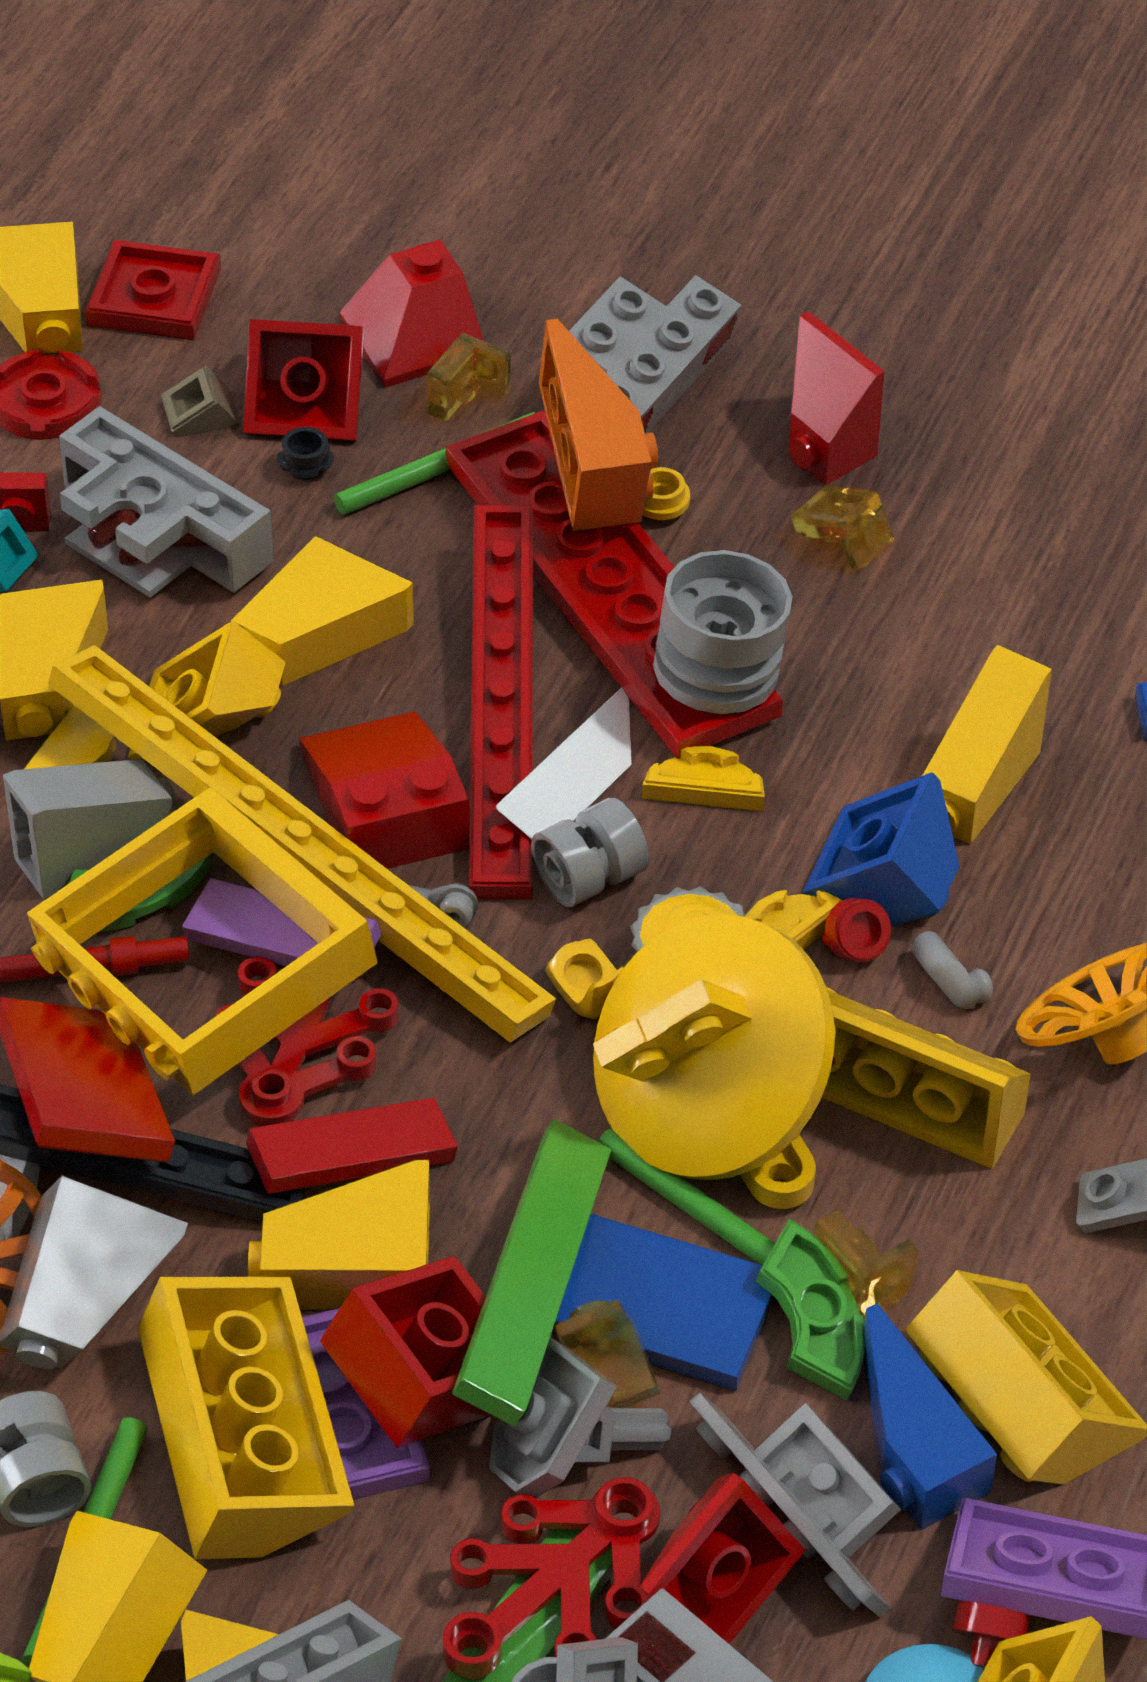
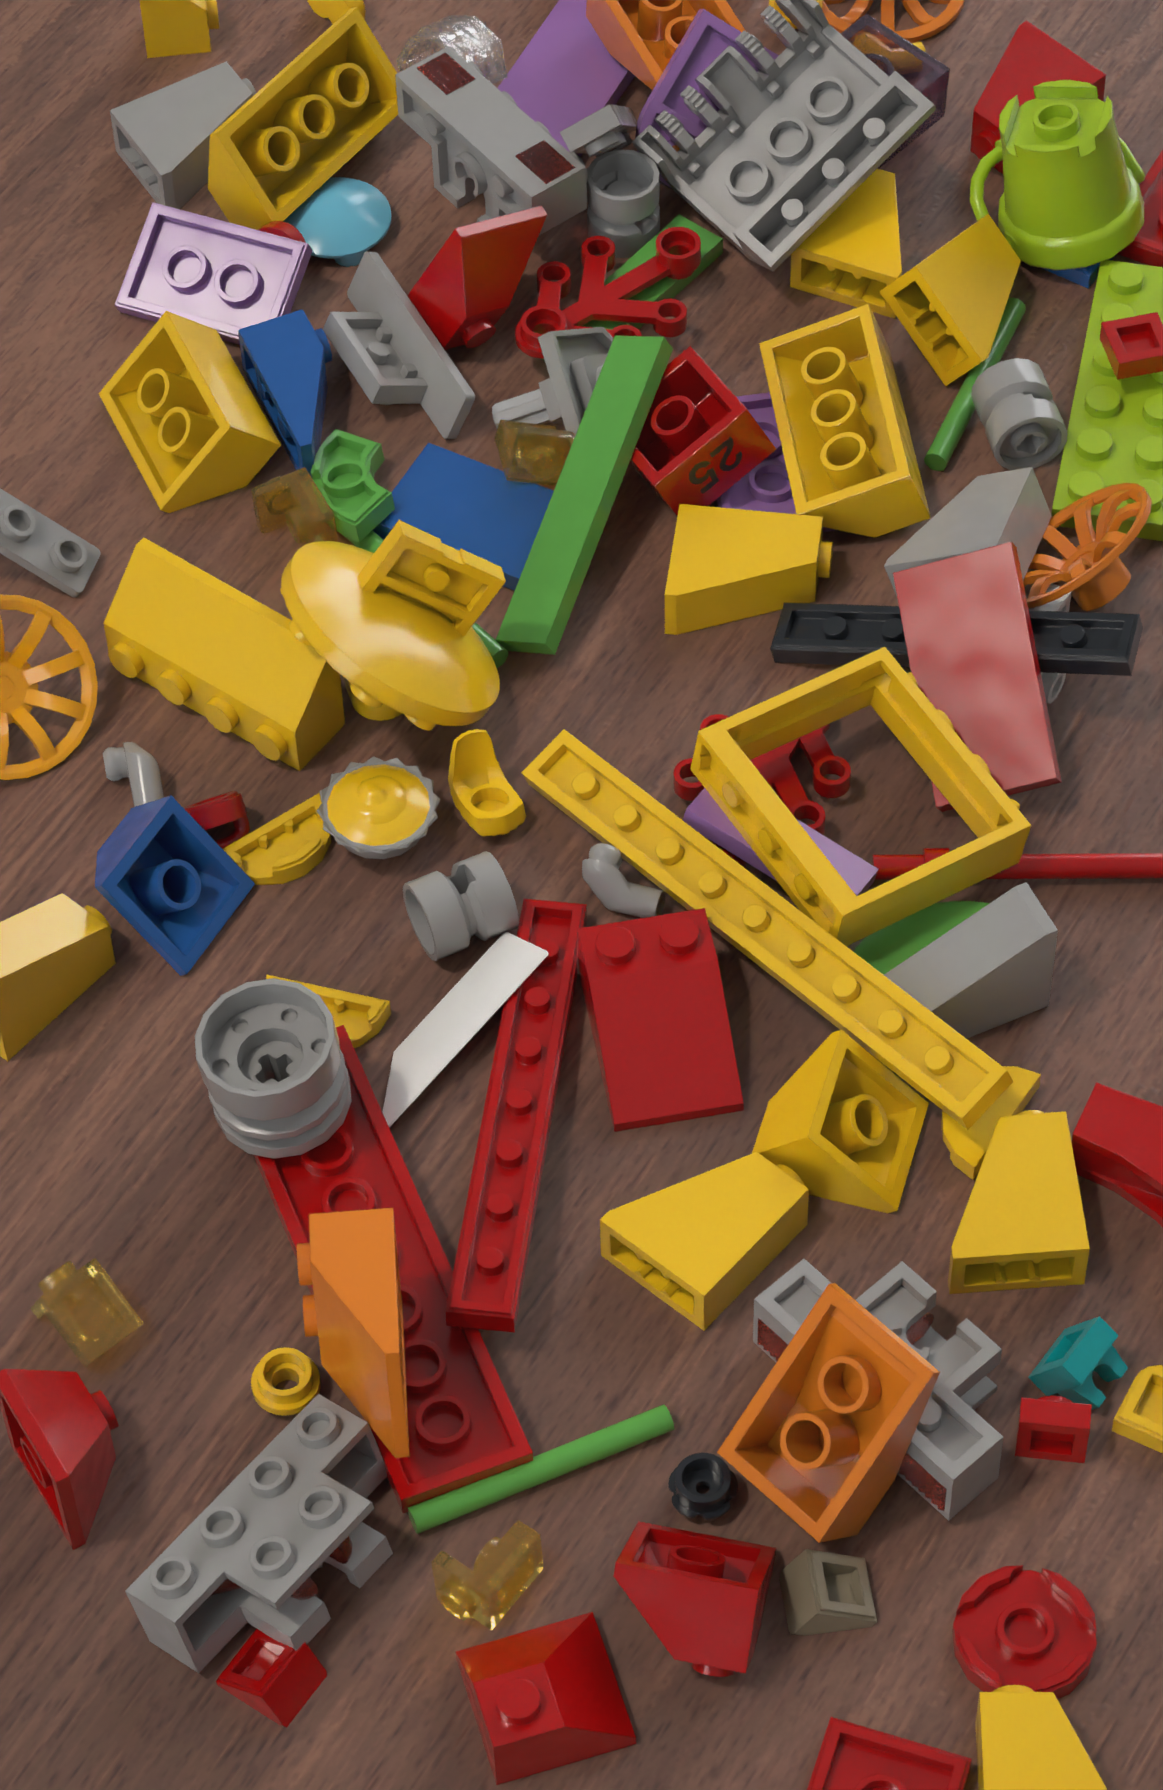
camera: 170 degrees left, 5 degrees up
(206, 432) = (832, 1418): none -> orange slope
(349, 1144) = (731, 648): red tile -> none

